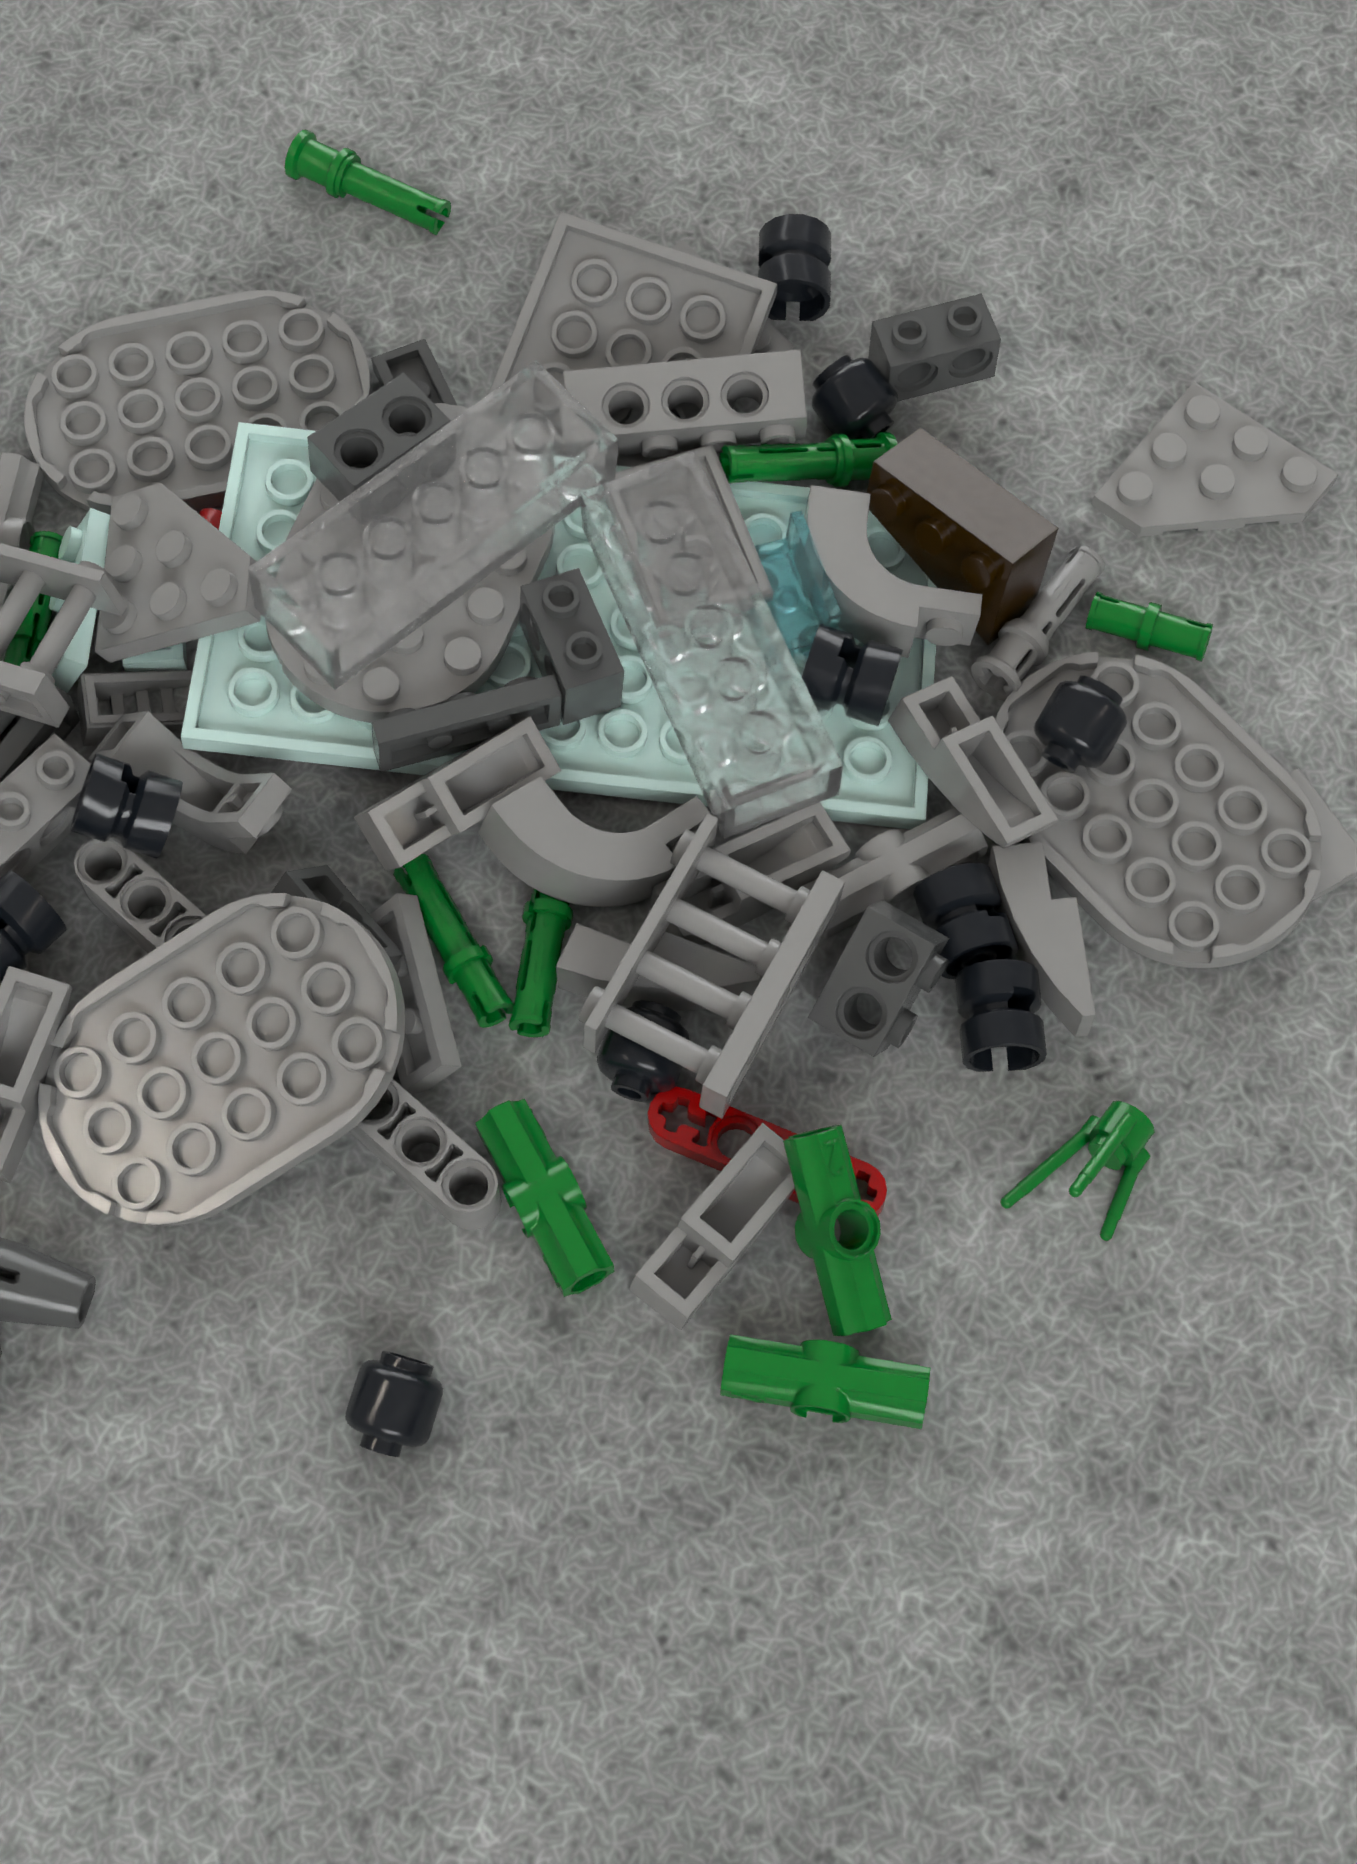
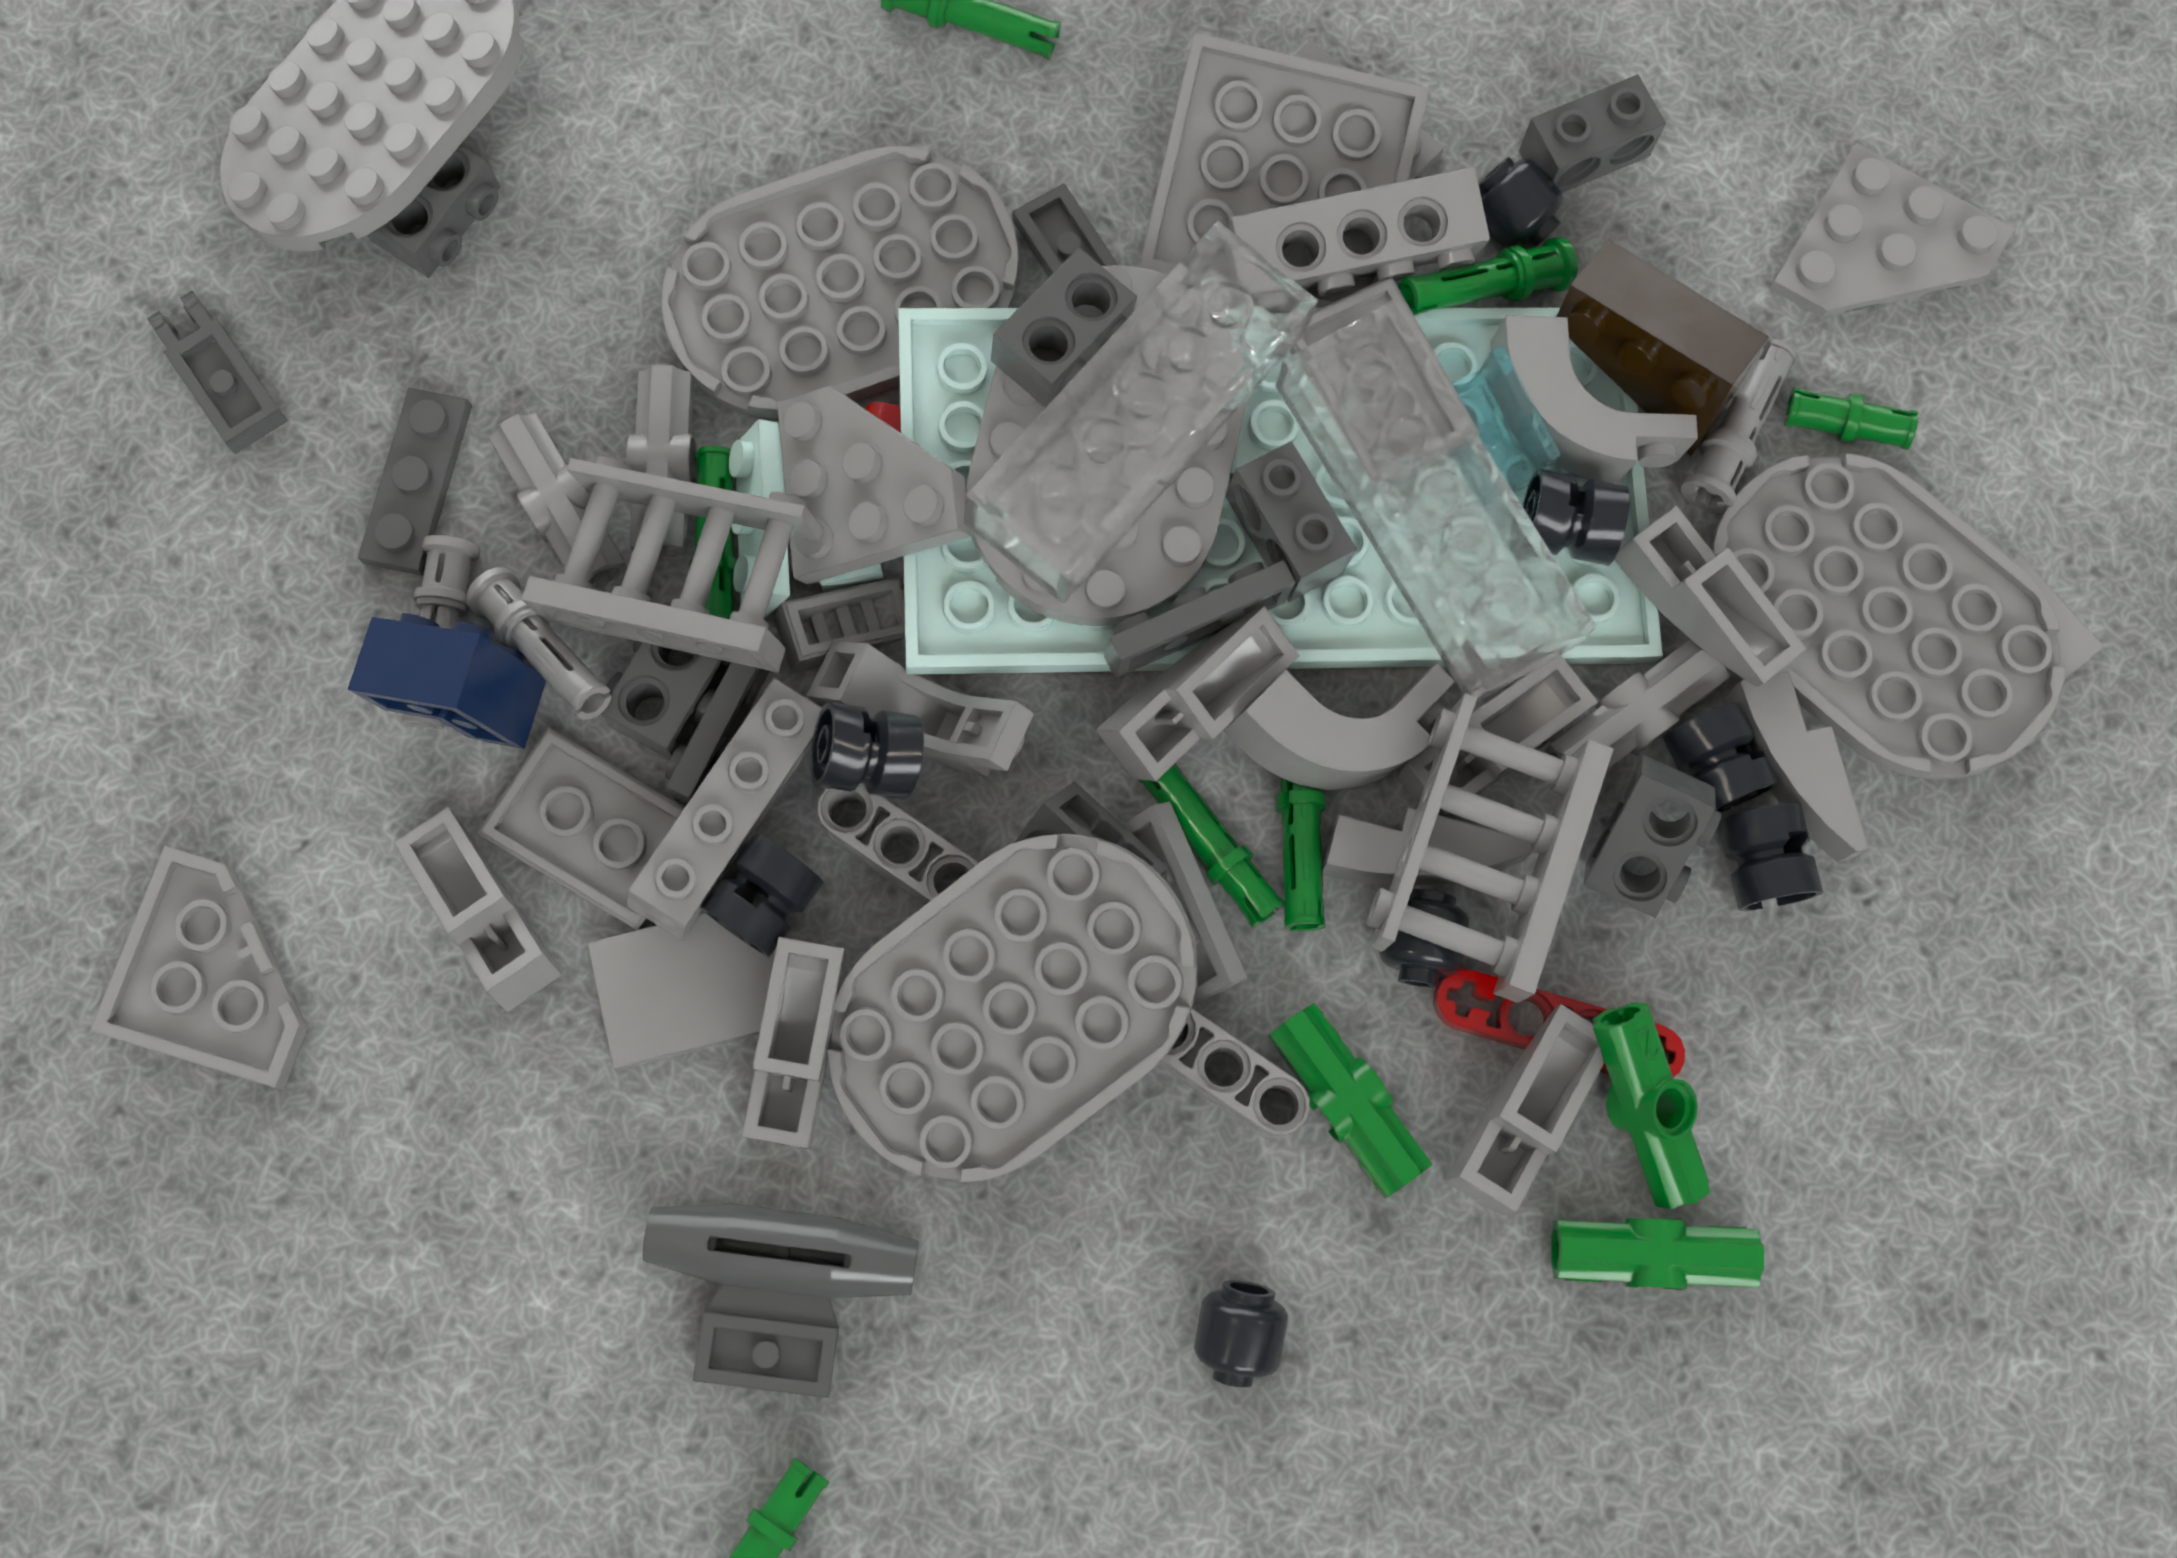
camera: 10 degrees left, 10 degrees up
(797, 258) = (1431, 53): black wheel -> none
(1080, 724) = (1811, 541): black head -> none
(1114, 1141) = (1898, 971): green plant -> none

